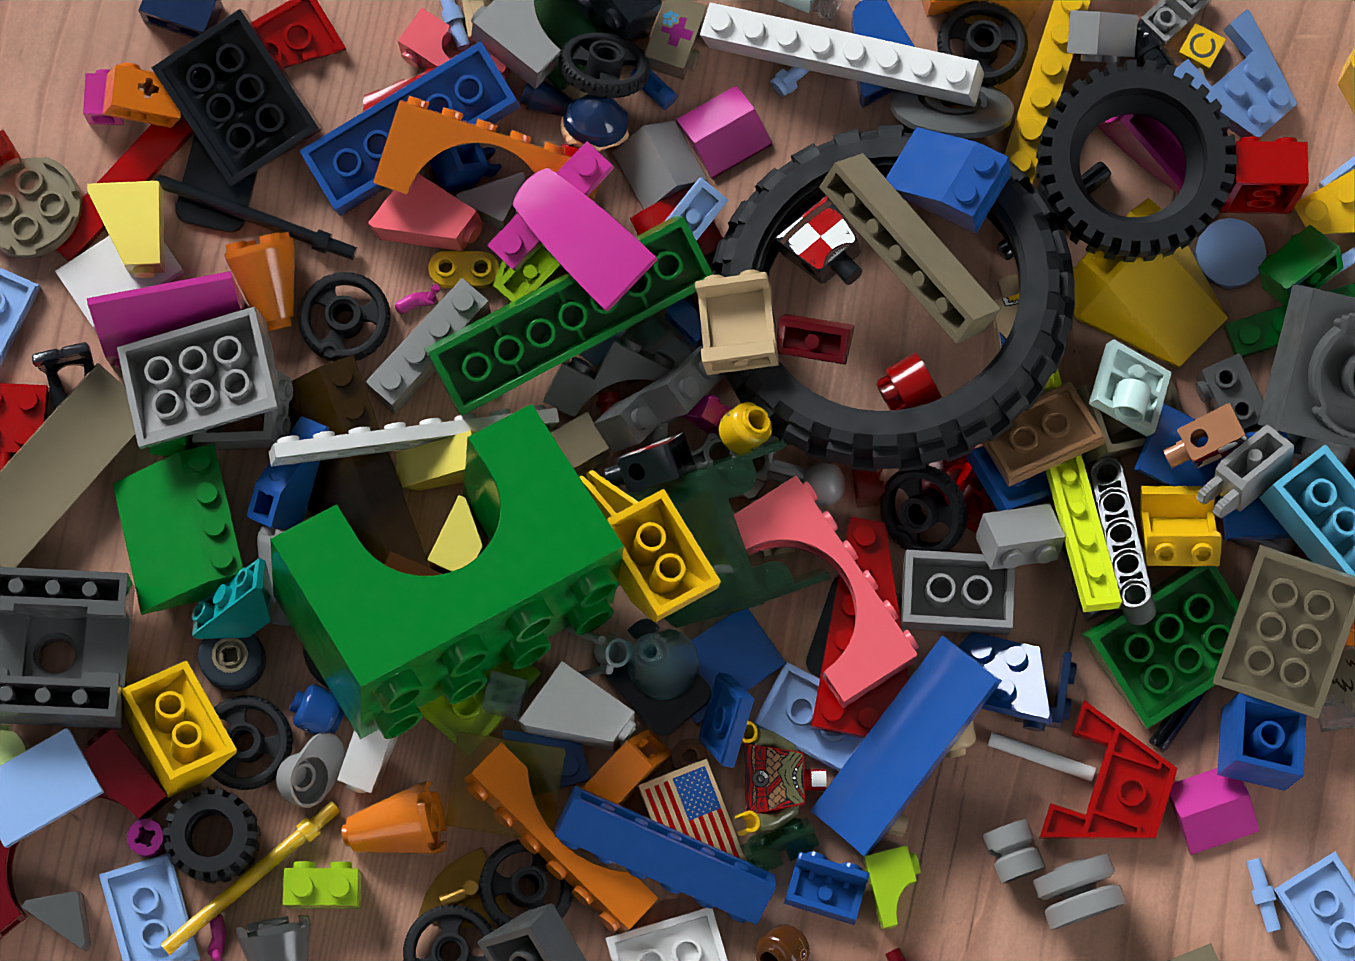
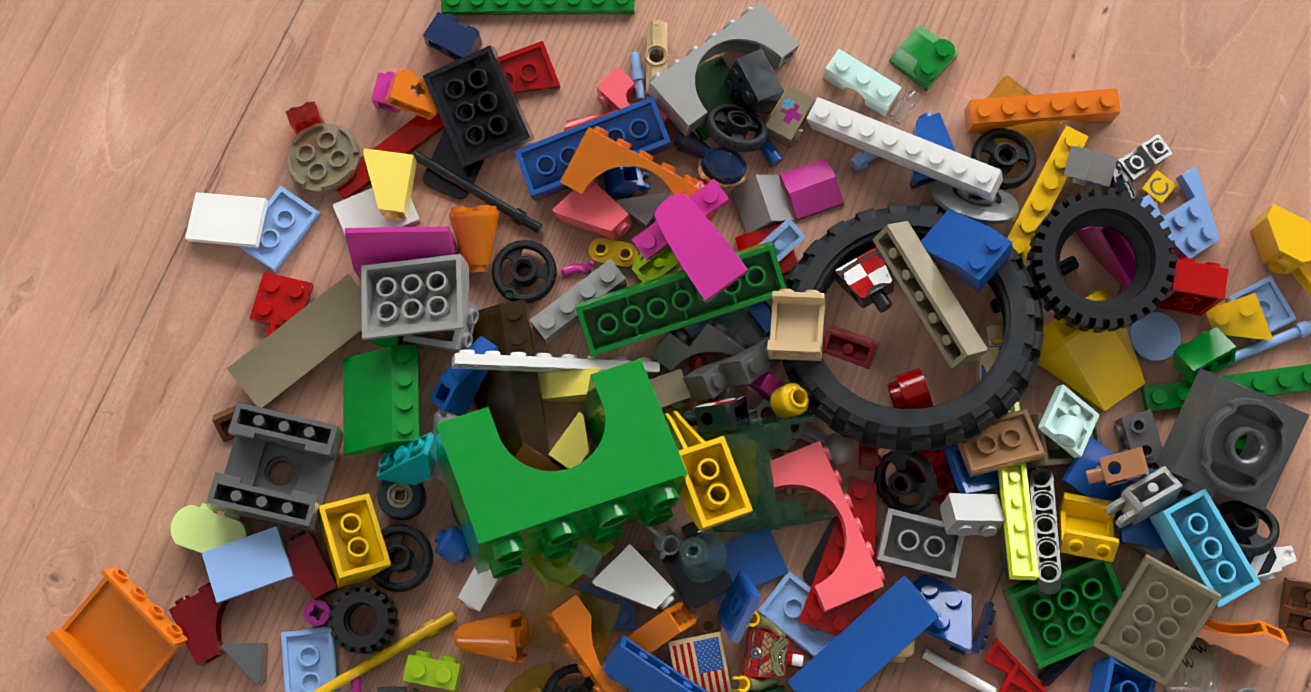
camera: 15 degrees right, 0 degrees up
(53, 360) = (318, 266): black piece -> none
(310, 775) = (440, 589): light grey cap -> none

